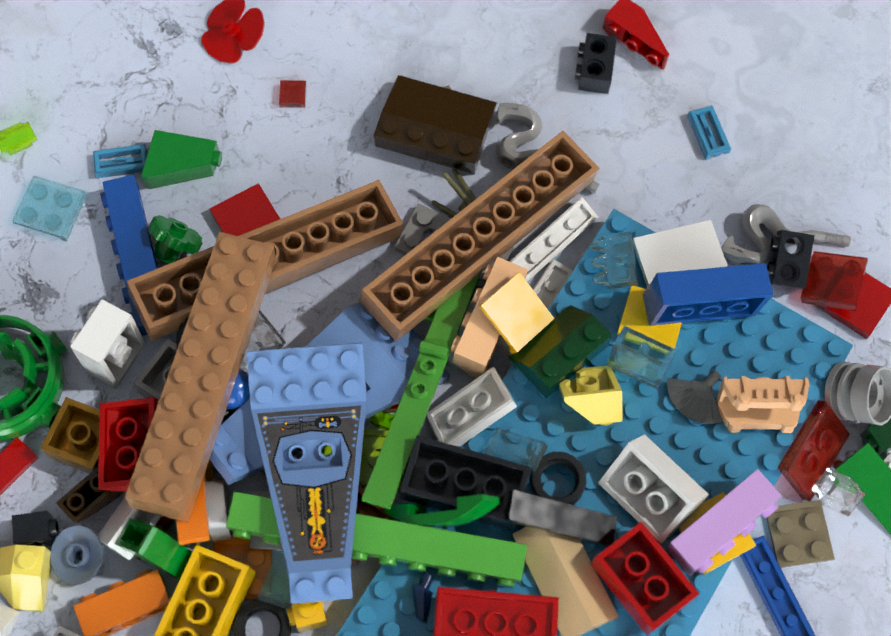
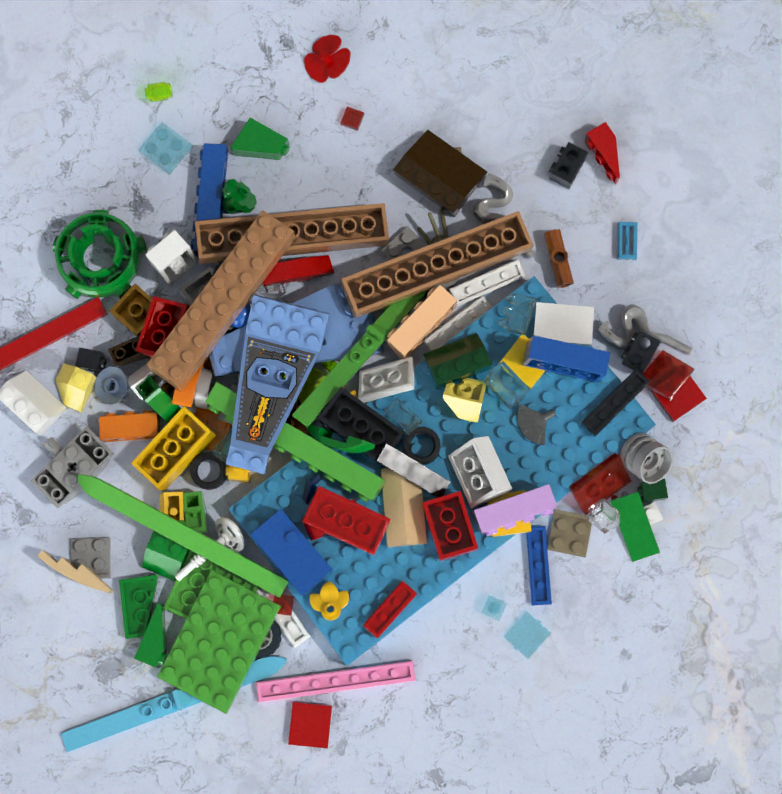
camera: 30 degrees right, 10 degrees up
(119, 165) = (222, 130): dark azure tile -> none
(244, 212) = (290, 195): red piece -> none
(294, 305) = (299, 270): none -> red slope
(516, 312) = (437, 327): yellow piece -> none
(641, 192) = (561, 269): none -> dark orange piece
(761, 403) = (573, 442): light nougat piece -> none
(791, 331) = (615, 402): none -> black tile

